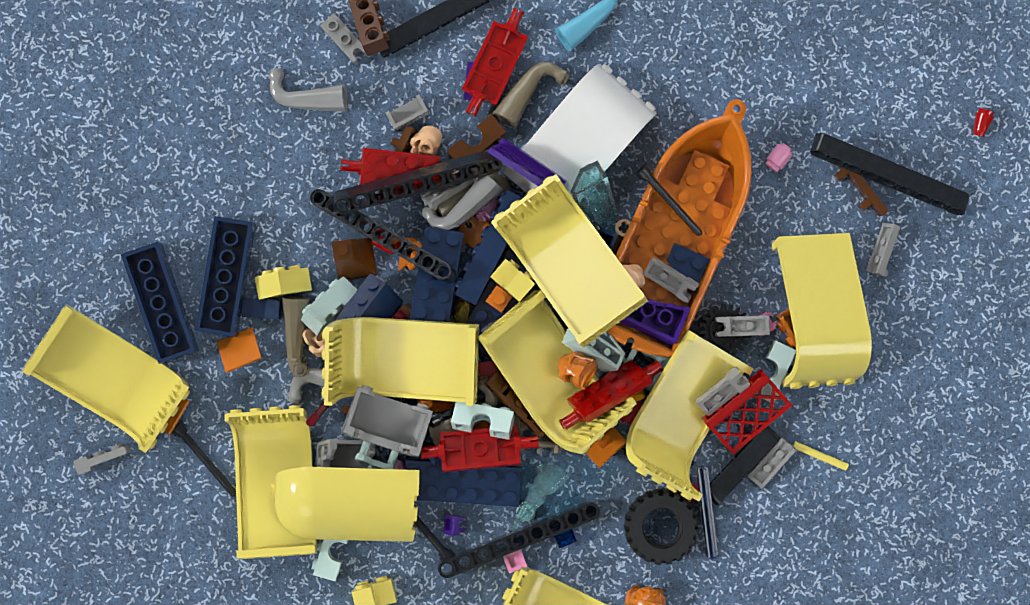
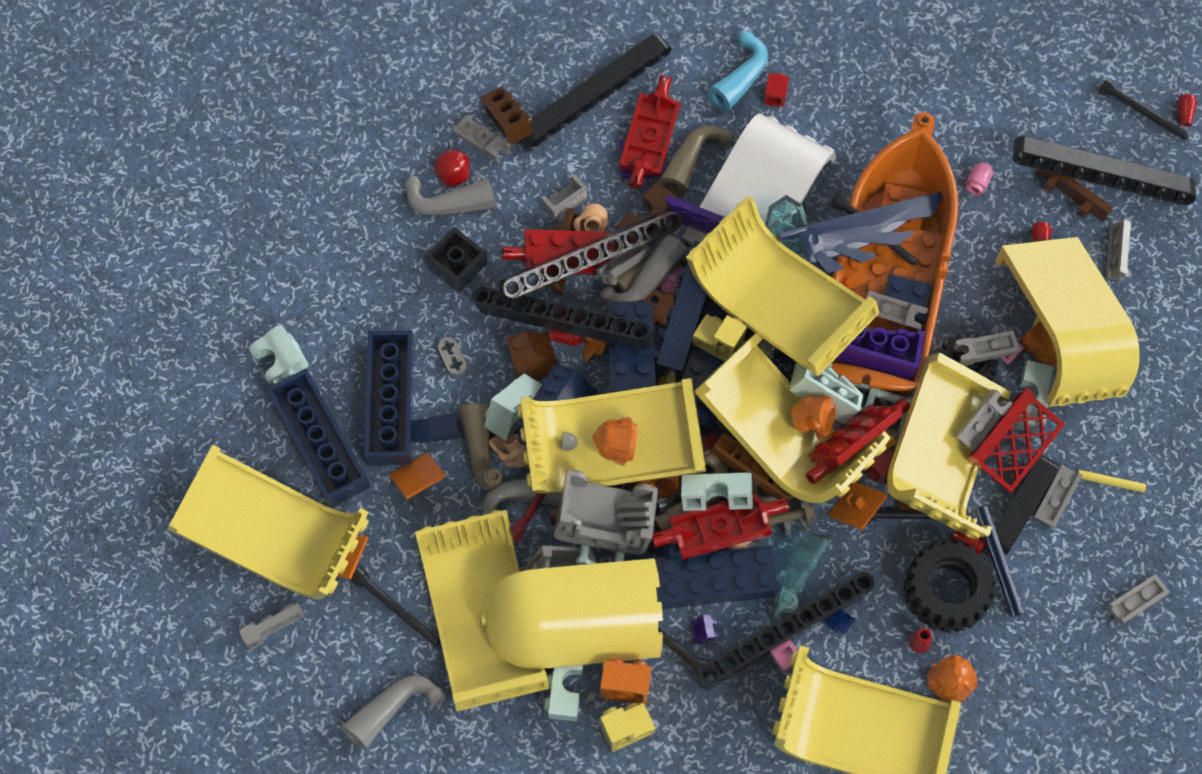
camera: 10 degrees left, 20 degrees down
(144, 217) = (288, 354): none -> light aqua piece
(171, 551) = (372, 718): none -> light grey animal
(281, 247) = (456, 354): none -> light grey beam
(283, 282) = (455, 390): light yellow brick -> none
(302, 157) = (456, 259): none -> black brick
(314, 64) = (452, 167): none -> red hair
(366, 356) = (568, 441): none -> light grey hinge
(379, 560) = (625, 681): none -> orange brick
(404, 366) = (616, 440): none -> orange helmet
(408, 433) = (624, 514): none -> light grey tile
(499, 299) = (707, 359): orange brick -> none
(617, 36) = (776, 89): none -> red brick
(627, 559) = (917, 643): none -> red cone
(651, 204) = (854, 231): none -> dark blue animal
(814, 562) = (1137, 600): none -> light grey hinge
(819, 222) = (1041, 231): none -> red cone
(919, 88) = (1109, 88): none -> black piece

